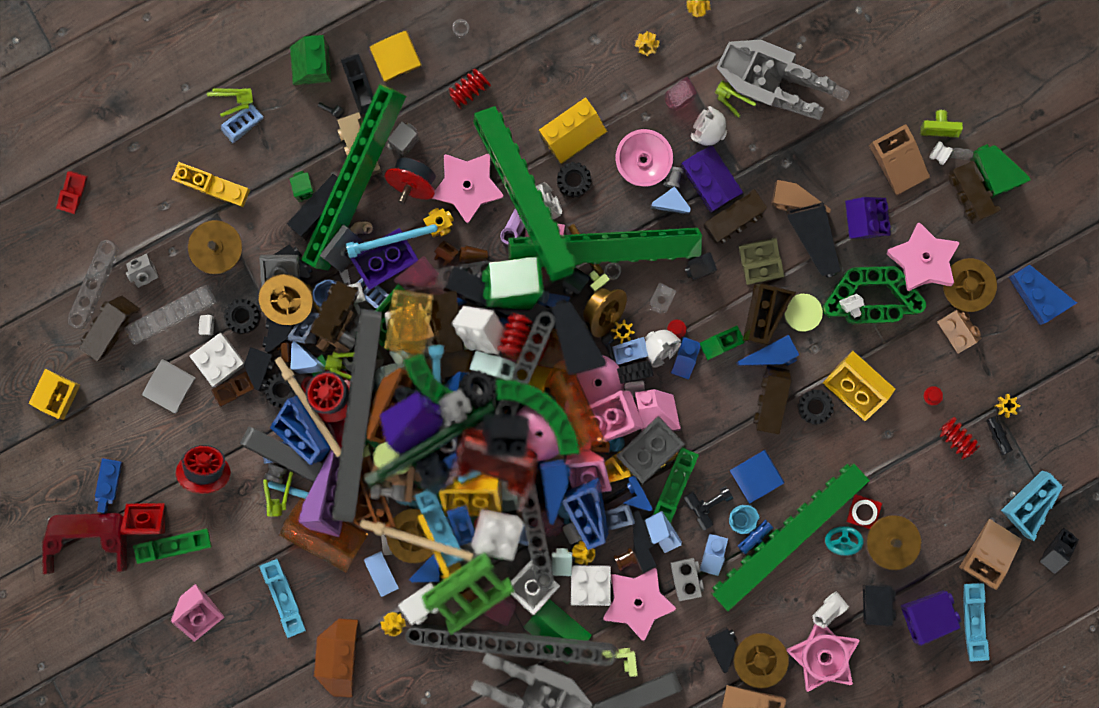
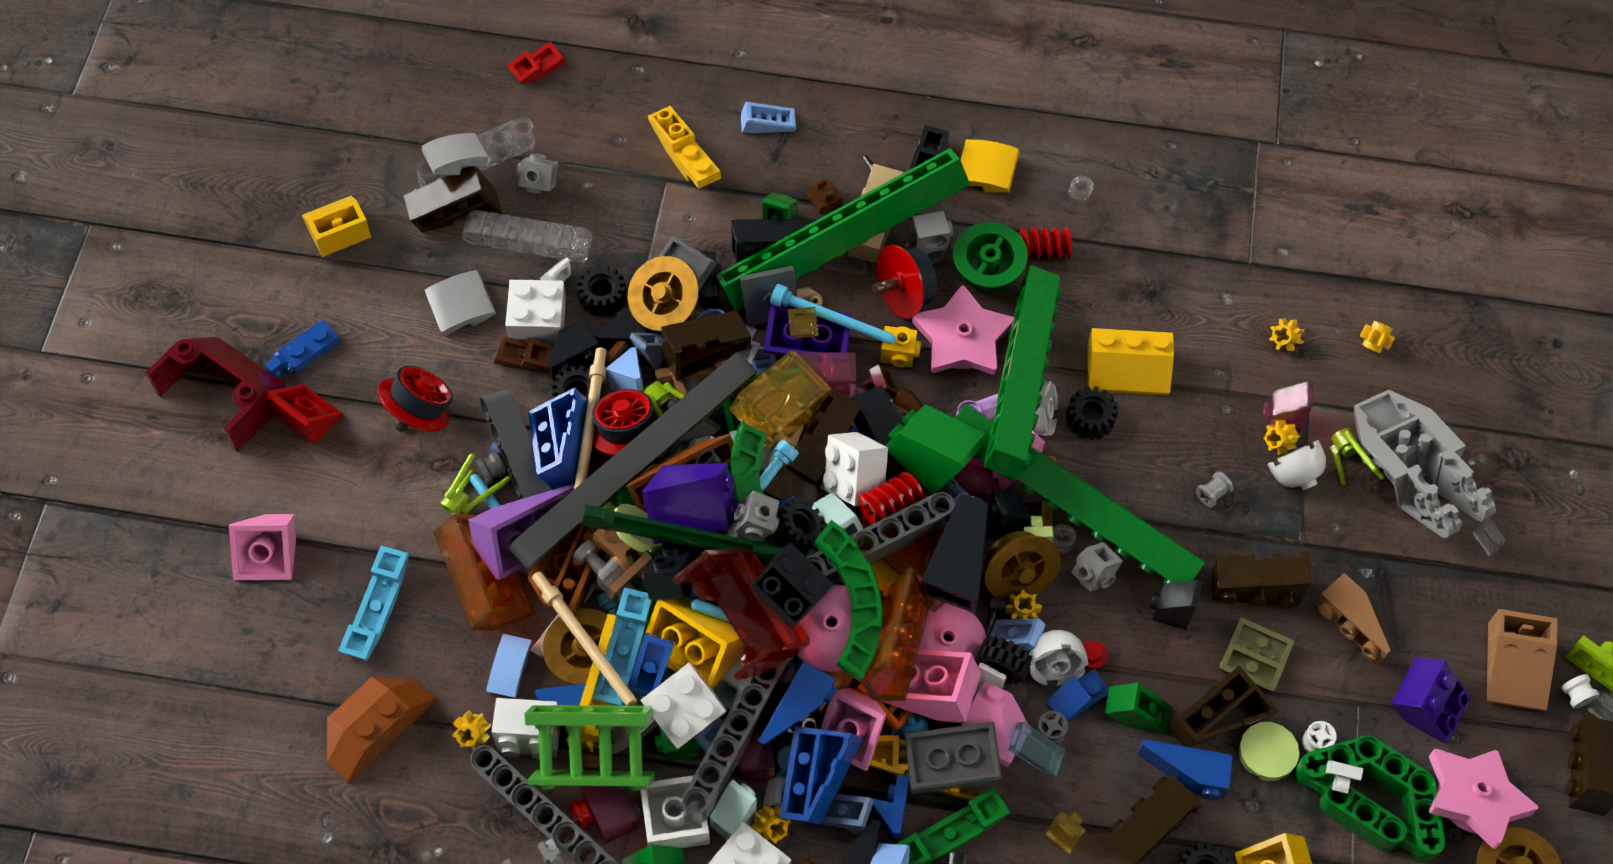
camera: 40 degrees right, 25 degrees down
(88, 302) = (453, 151): none -> light grey slope
(172, 546) = (307, 461): green slope -> none
(215, 247) = (634, 201): pearl gold piece -> none
(243, 96) = (791, 94): lime plant -> none
(310, 60) = (895, 106): green slope -> none
(317, 151) = (824, 196): none -> reddish brown tile
(379, 258) = (803, 322): none -> clear yellow plate
(446, 124) = (990, 256): none -> green piece
(484, 622) = (581, 813): none -> red plate
(644, 144) = (1199, 429): bright pink dish -> none
(645, 278) = (1096, 567): none -> light grey brick
(662, 291) = (1103, 598): clear brick -> none
(672, 202) = (1190, 512): light blue slope -> none
(687, 408) = (1036, 749): none -> clear light blue tile
(688, 116) = (1281, 437): none -> yellow gear
(688, 388) = (1054, 722): none -> flat silver wheel
(711, 178) = (1259, 517): dark purple slope -> none
(732, 439) = (1066, 830): none -> clear yellow tile
(815, 233) = (1351, 662): black slope -> none
(828, 285) = (1324, 734): none -> white wheel

